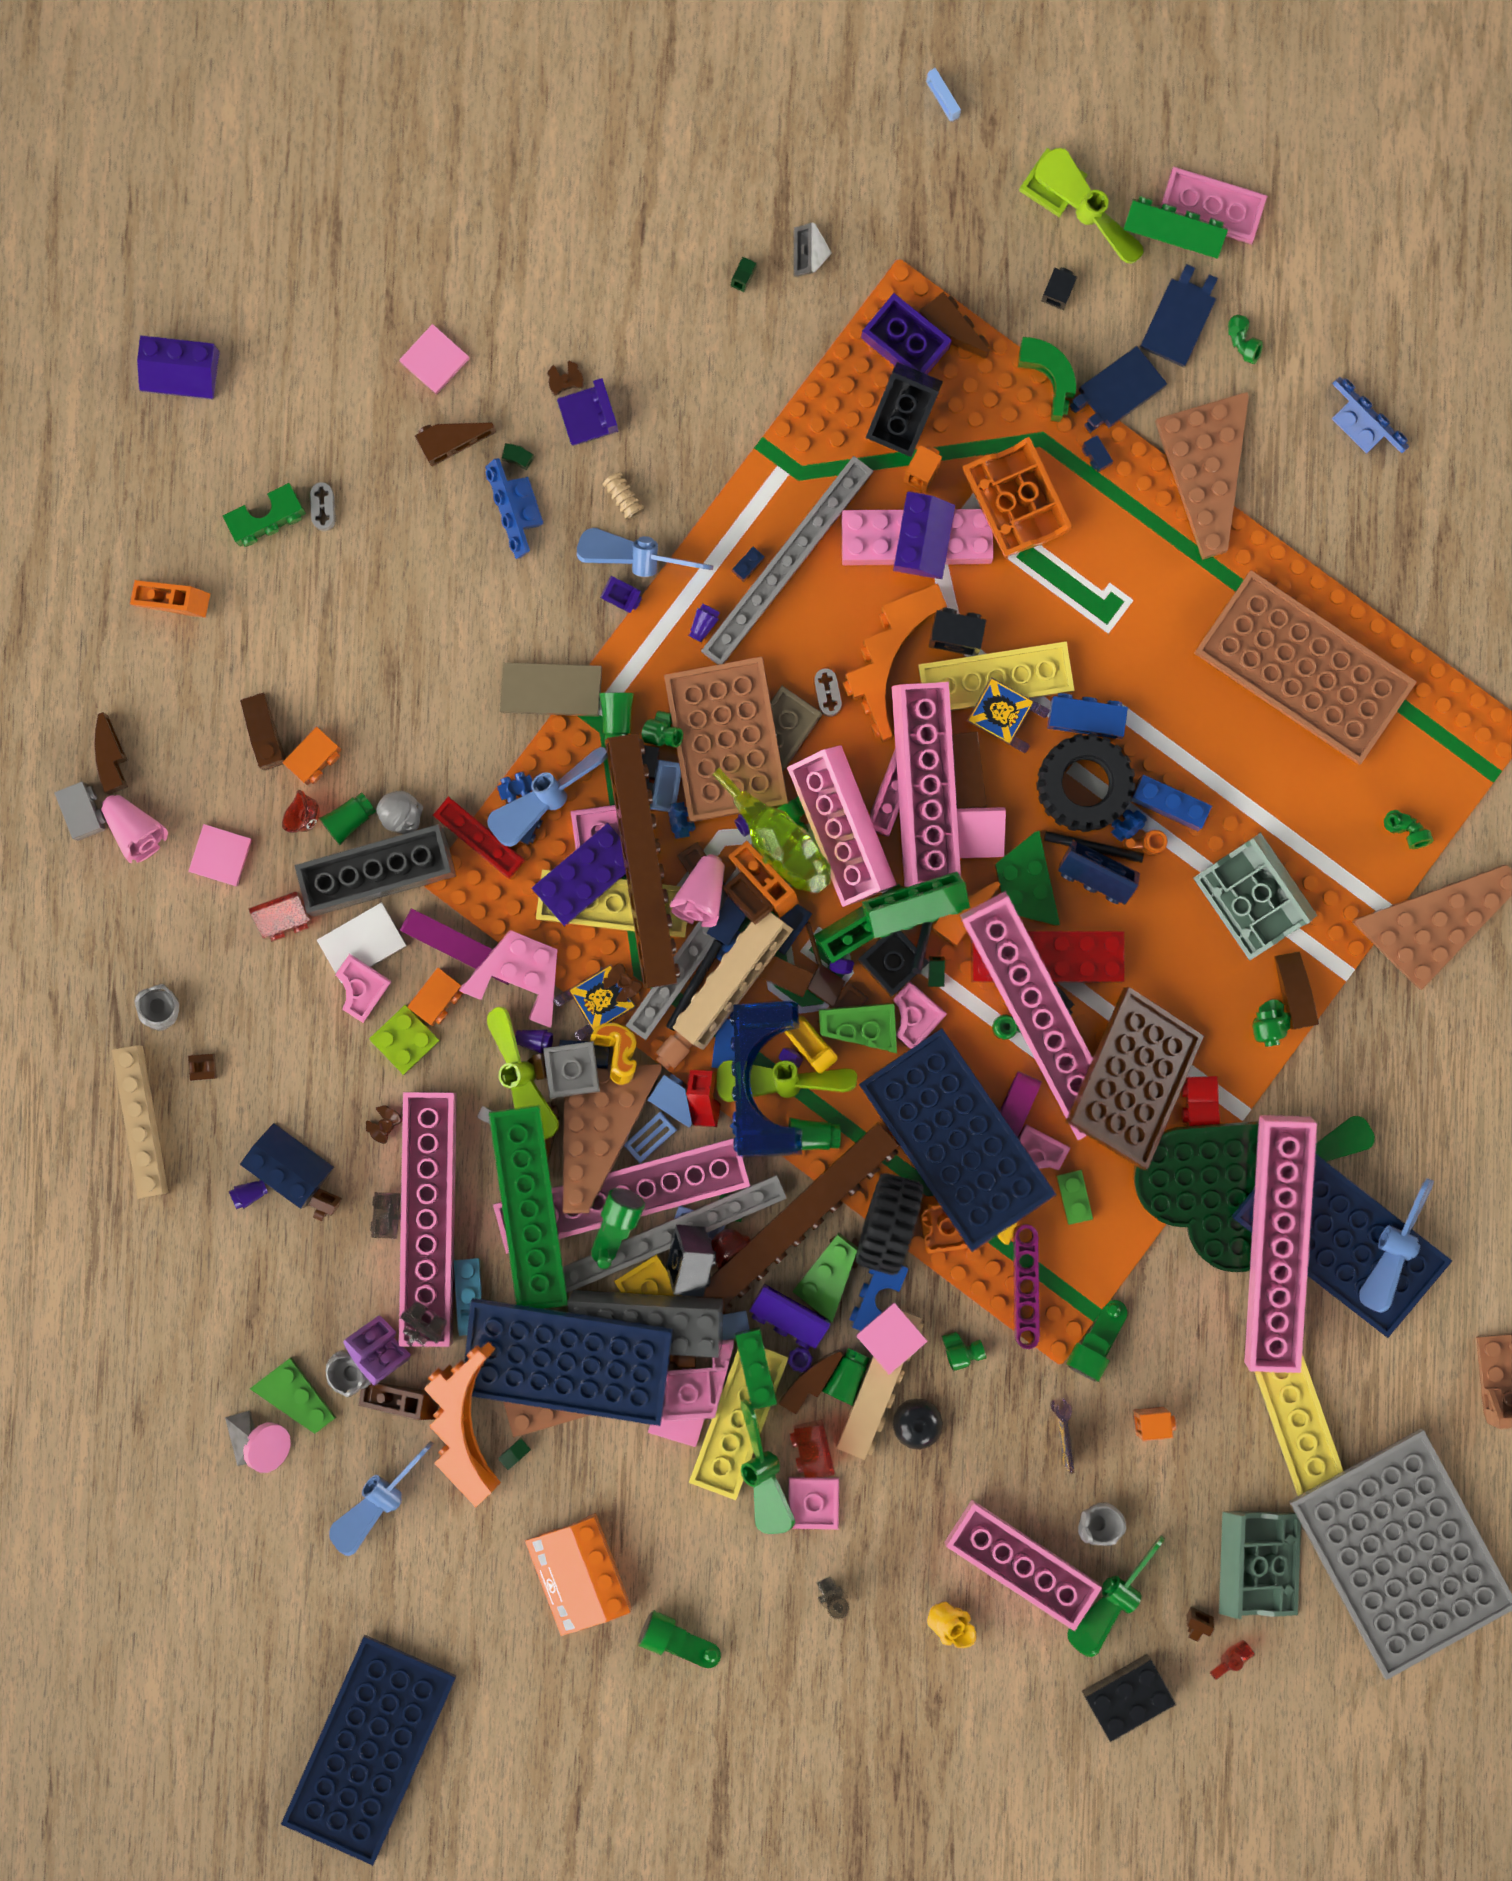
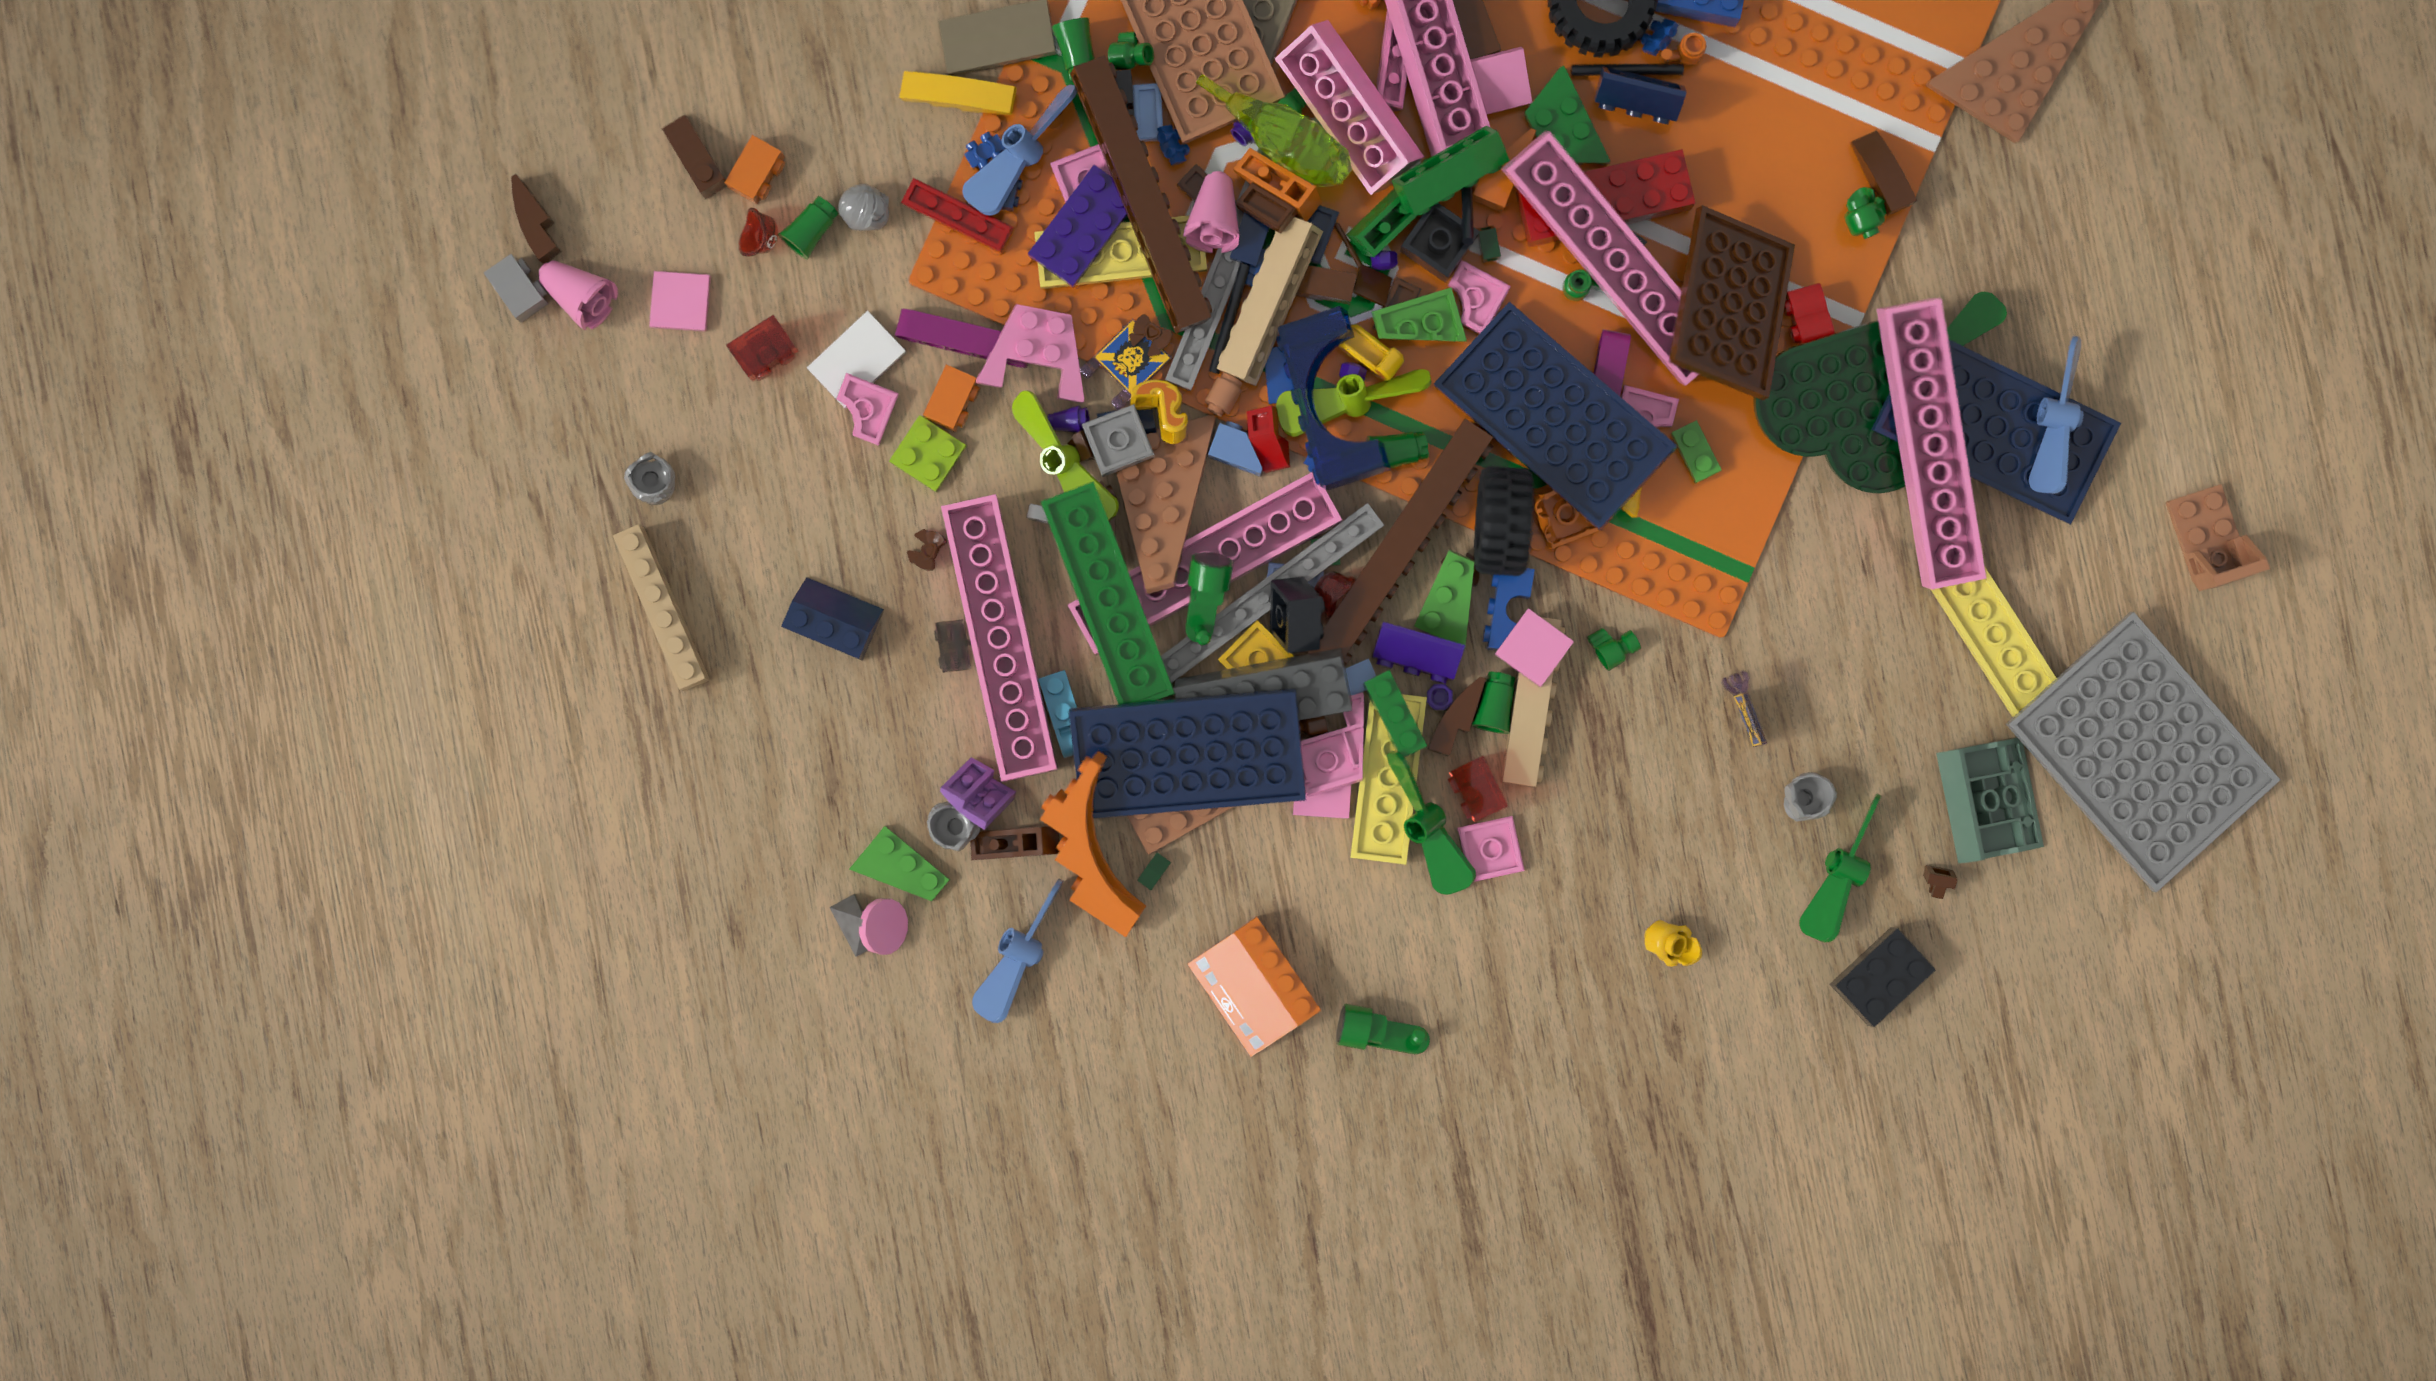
camera: 10 degrees left, 0 degrees up
(170, 598) = (560, 34): orange slope -> none
(202, 1067) = (714, 534): reddish brown tile -> none
(247, 1193) = (796, 659): dark purple cone -> none
(324, 1203) = (883, 650): reddish brown tile -> none
(368, 1750) = (1071, 1228): dark blue plate -> none
(375, 870) = (853, 275): dark grey brick -> none
(413, 1318) = (1010, 743): clear smoke hips -> none
(505, 730) = (958, 92): none -> yellow slope
(666, 1122) = (1207, 516): light blue tile -> none
(833, 1598) = (1537, 943): clear smoke hips -> none
(917, 1424) = (1583, 737): black cylinder -> none
(1023, 1565) = (1734, 860): bright pink brick -> none
(1032, 1297) = (1662, 572): magenta beam -> none
(1090, 1356) = (1754, 619): green piece -> none
(1154, 1423) = (1840, 673): orange brick -> none
(1233, 1659) = (1985, 908): clear red piece -> none
(1255, 896) = (1814, 81): sand green piece -> none

